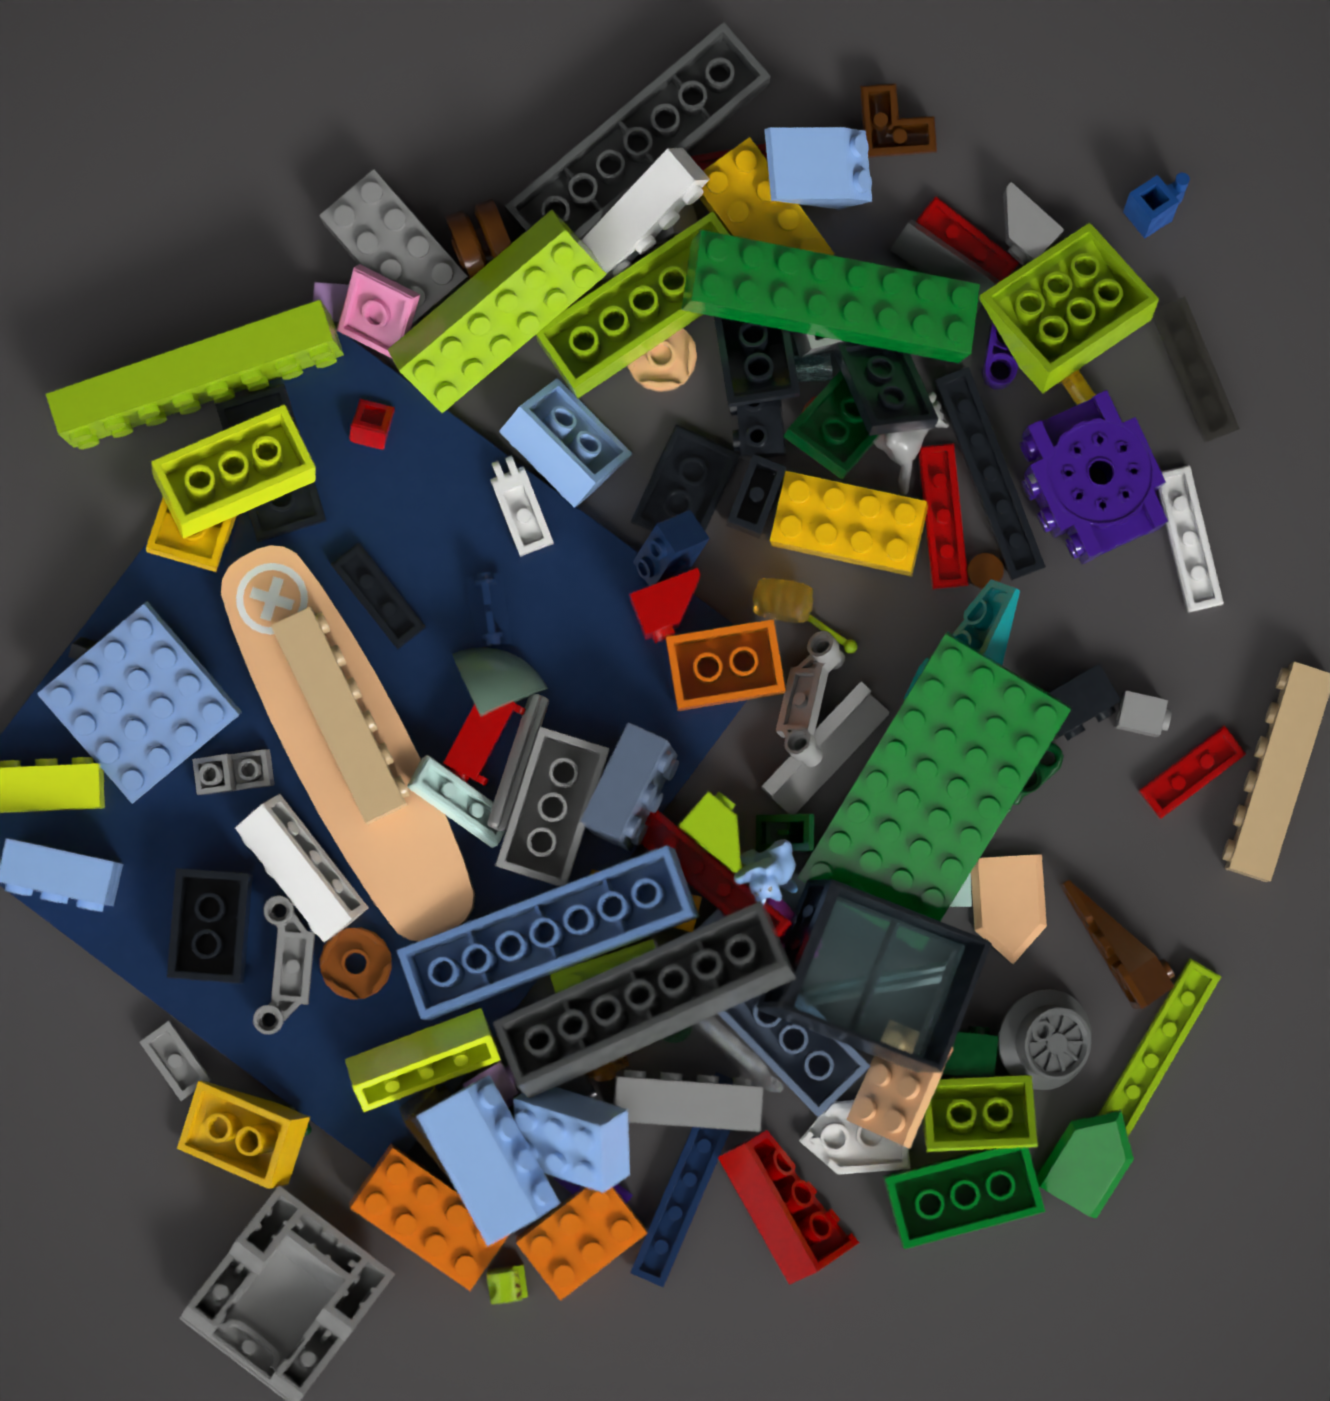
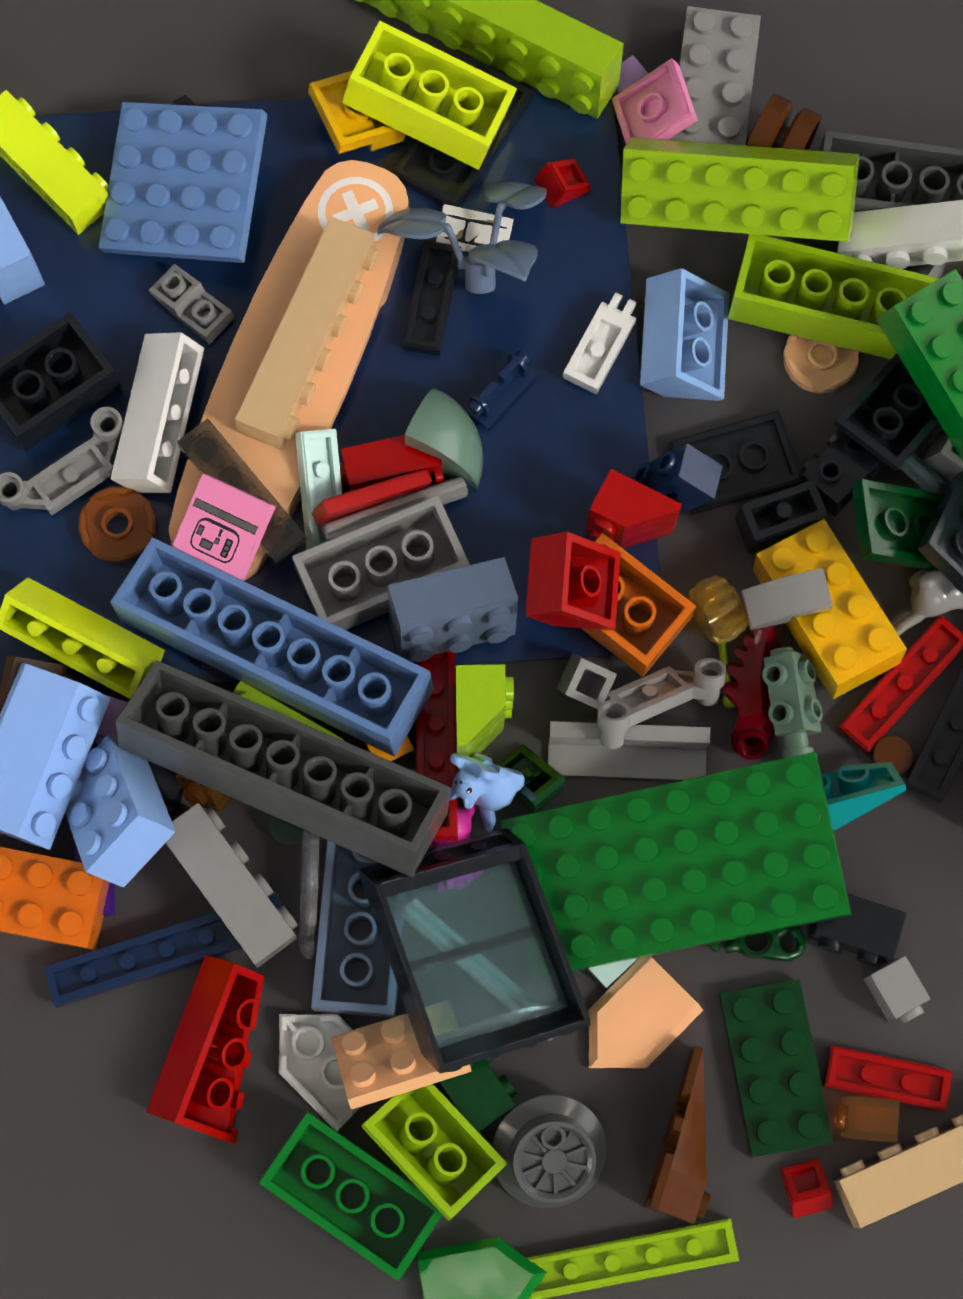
camera: 50 degrees right, 10 degrees down
(354, 522) = (473, 227): none -> white sticker
(413, 528) = (505, 256): none -> sand blue plant
(417, 860) = (216, 457): none -> clear smoke plate
(435, 895) = (223, 526): none -> bright pink tile
(497, 772) = (370, 496): none -> red tile
(687, 691) = (572, 582): none -> red slope
(754, 736) = (586, 681): none -> light grey brick
(822, 552) = (786, 598): none -> light grey slope
(860, 624) = (751, 694): none -> dark red plant
(893, 603) = (797, 694): none -> sand green brick
(1120, 840) = (775, 1068): none -> dark green plate
(1206, 811) = (867, 1119): none -> clear orange brick
(1214, 890) = (806, 1188): none -> red slope

